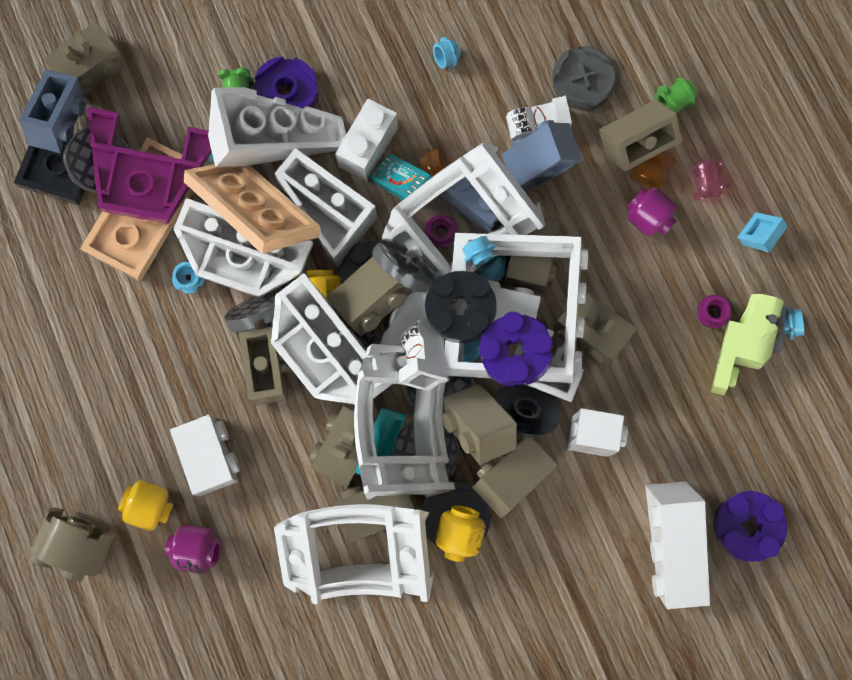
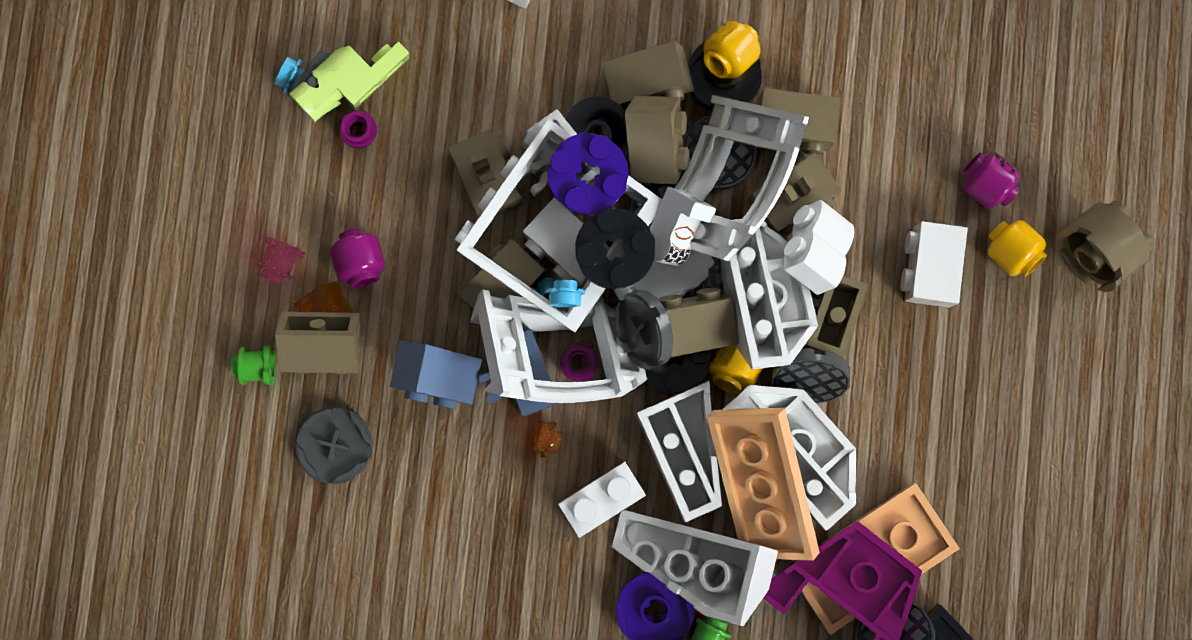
camera: 160 degrees left, 5 degrees up
(179, 278) = (872, 458): medium azure plate -> none
(303, 406) = (818, 247): none -> white brick
(386, 431) = (749, 183): teal tile -> none
(398, 176) = (590, 436): teal tile -> none
(406, 544) = (800, 51): white wedge -> none
(446, 53) = (462, 553): medium azure plate -> none
(525, 119) = (411, 420): white leg -> none
(597, 433) = (549, 69): white brick -> none
(762, 232) = (260, 177): medium azure plate -> none

